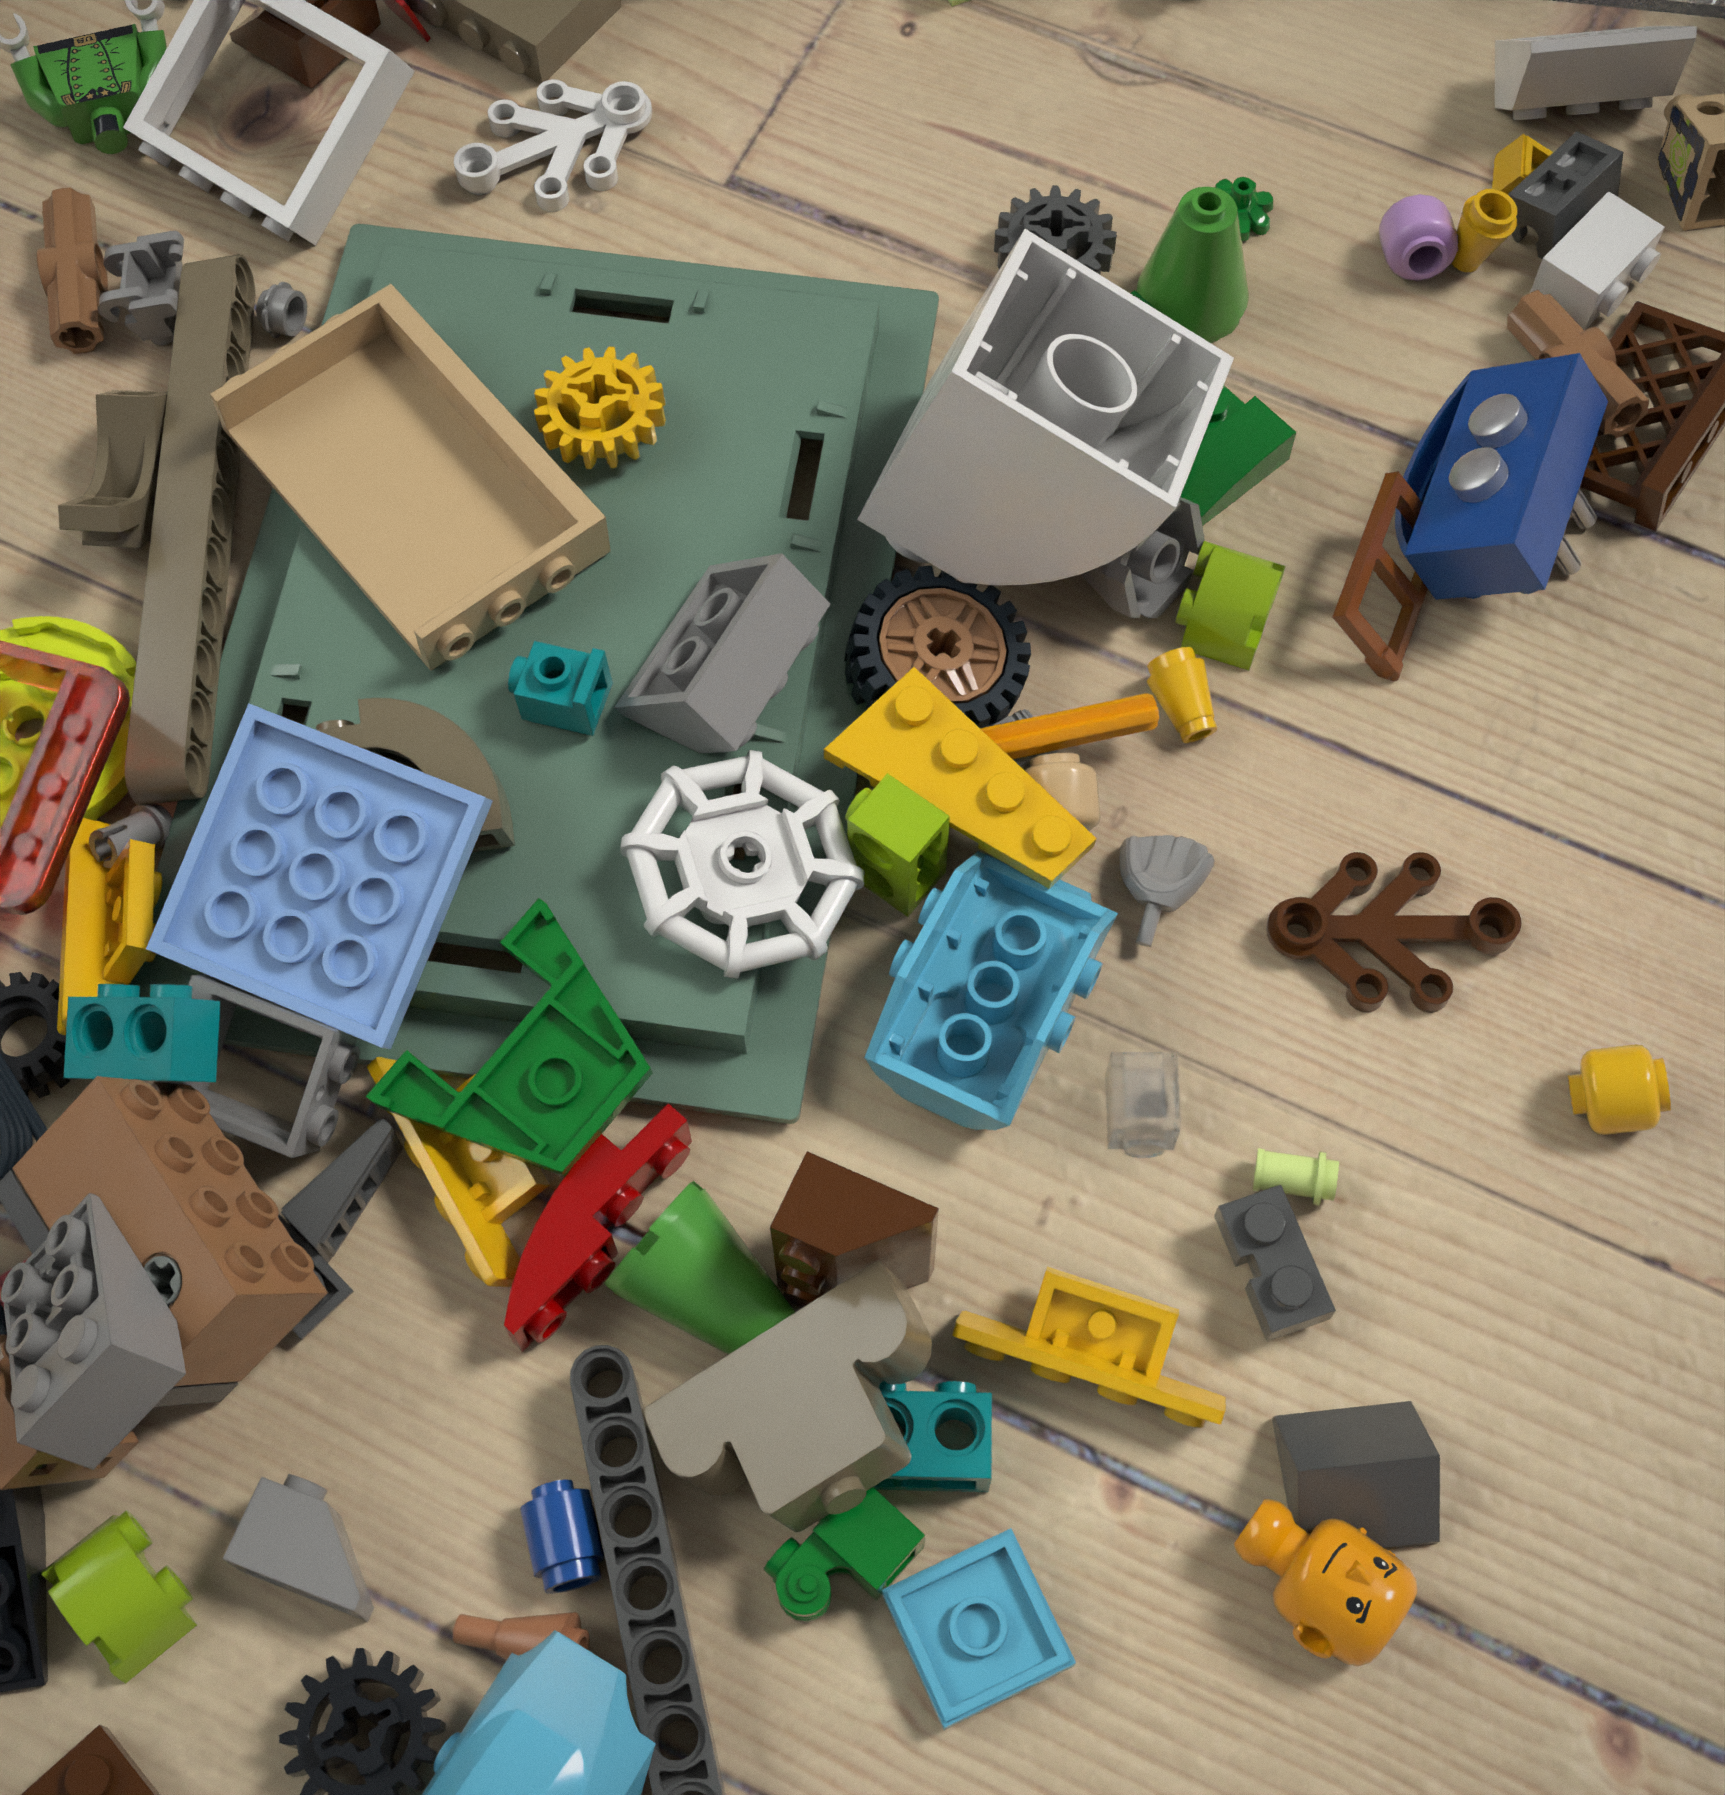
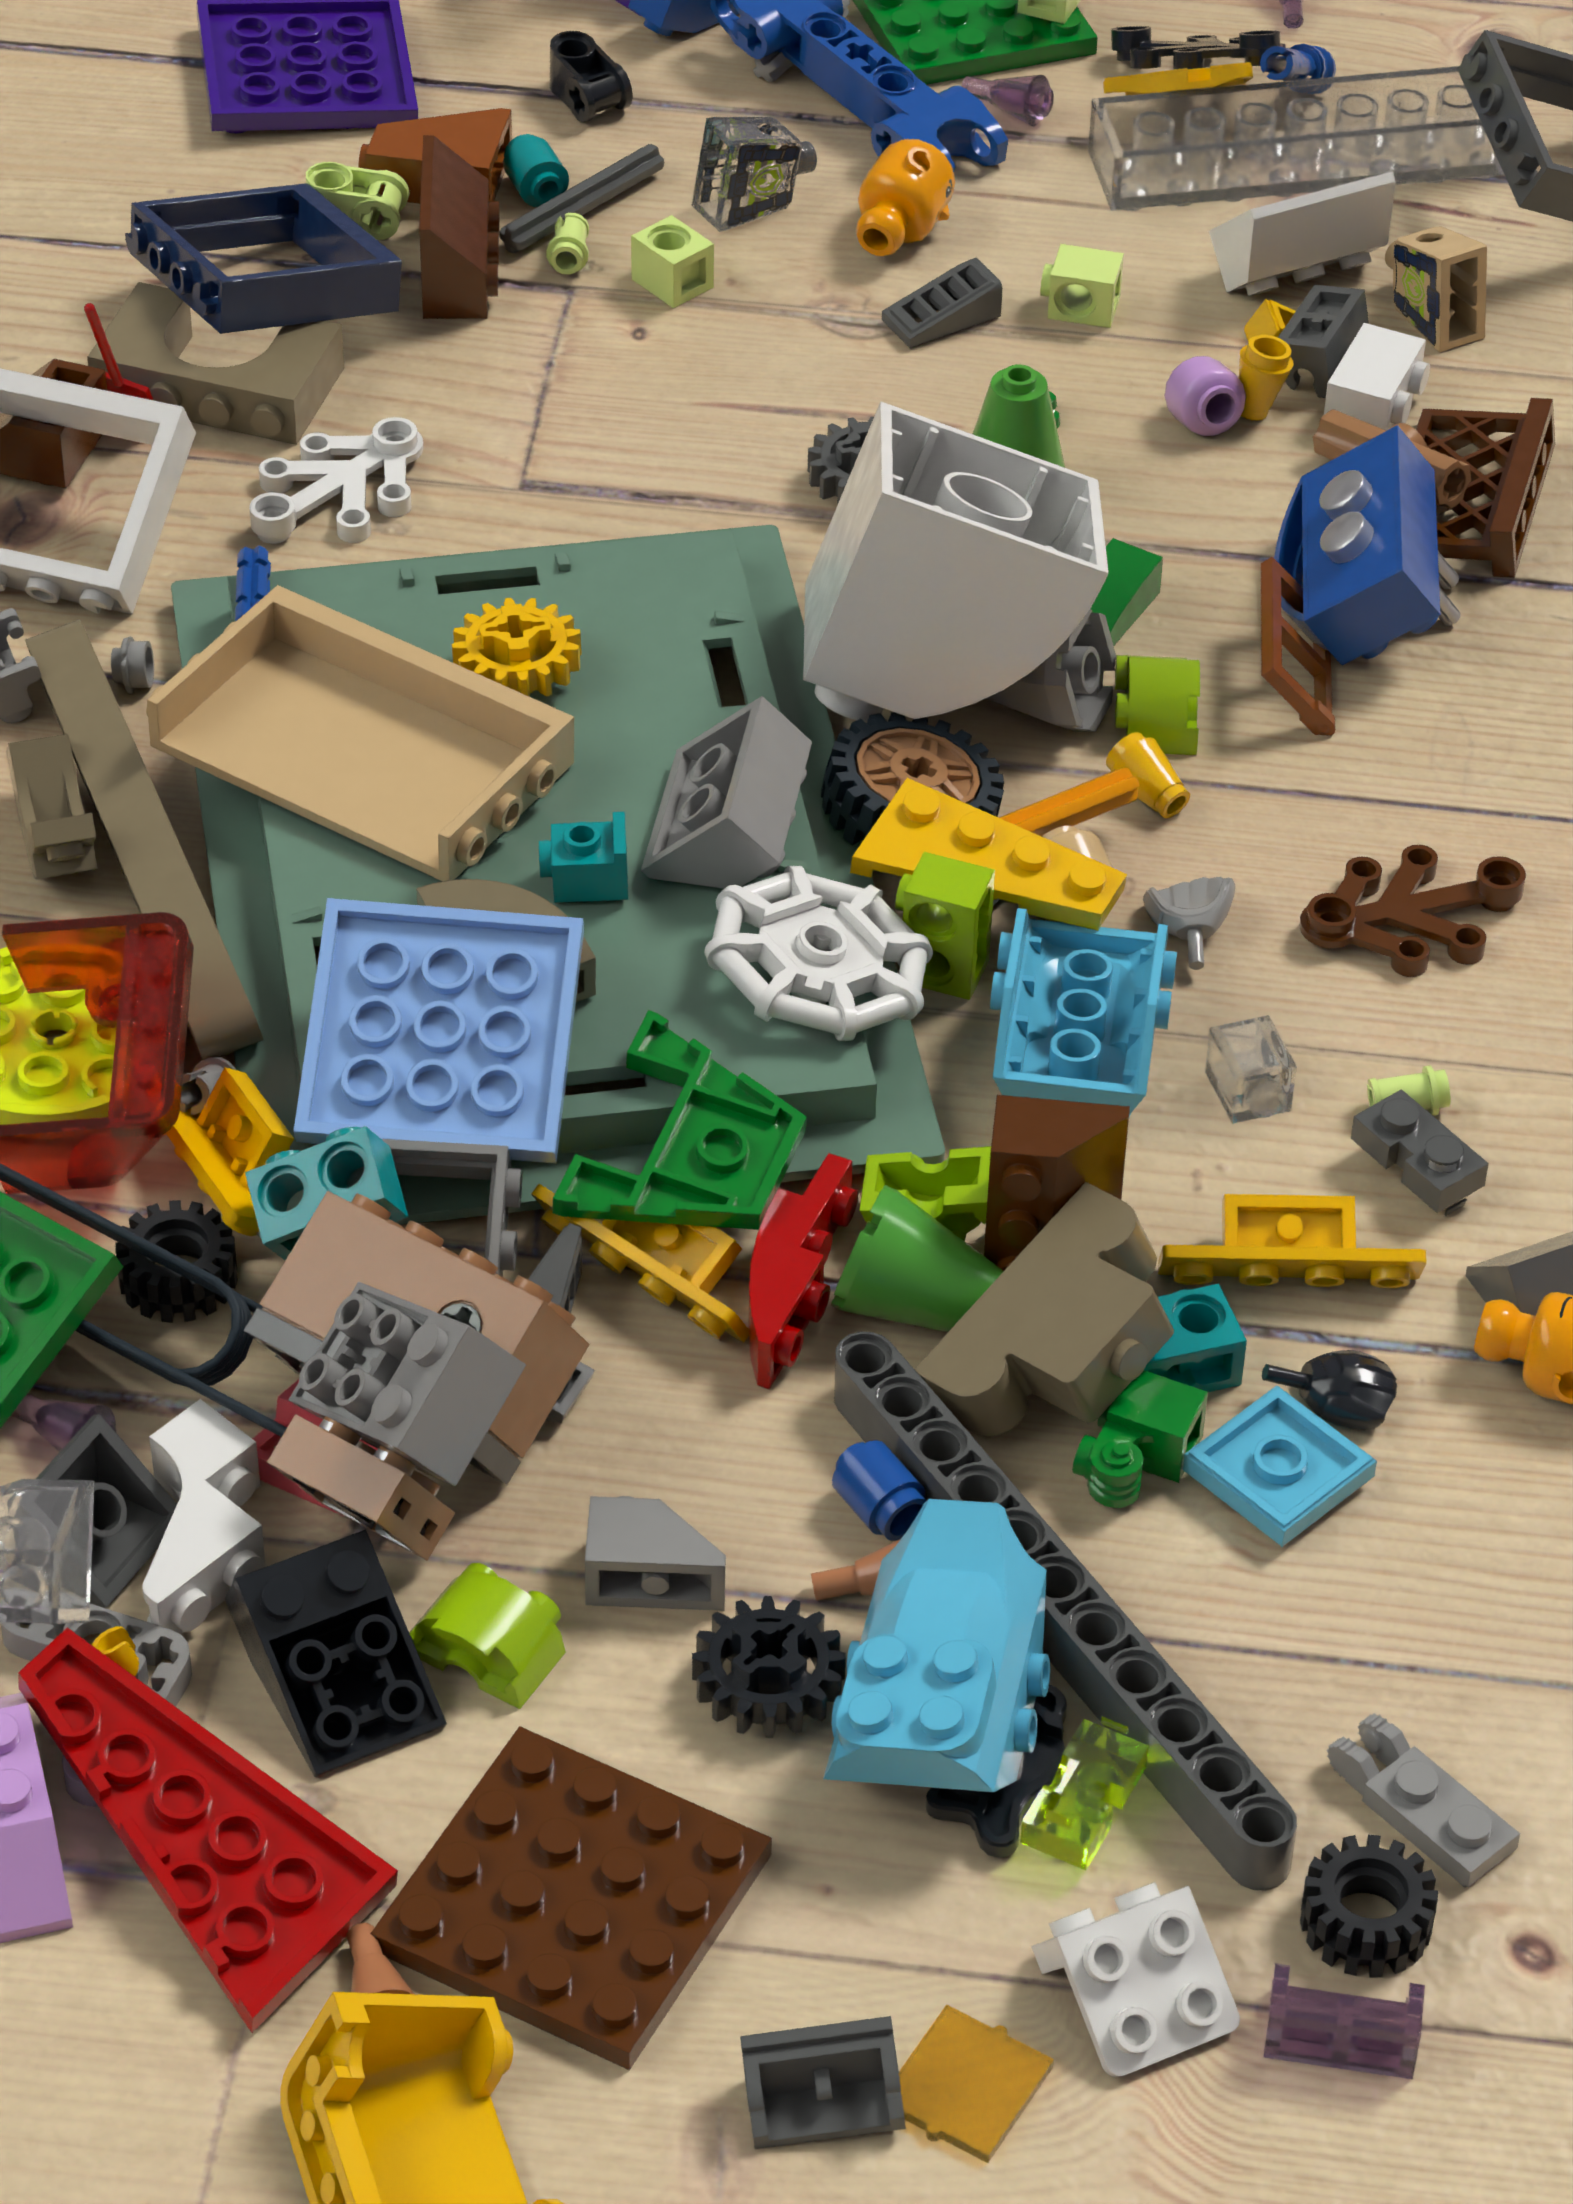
camera: 20 degrees left, 20 degrees down
(394, 258) = (251, 578): none -> blue axle
(746, 1165) = (948, 1191): none -> lime cylinder
(1086, 1540) = (1342, 1387): none -> black piece
(1233, 46) = (963, 297): none -> dark grey slope
(1349, 74) = (1083, 285): none -> yellowish green brick

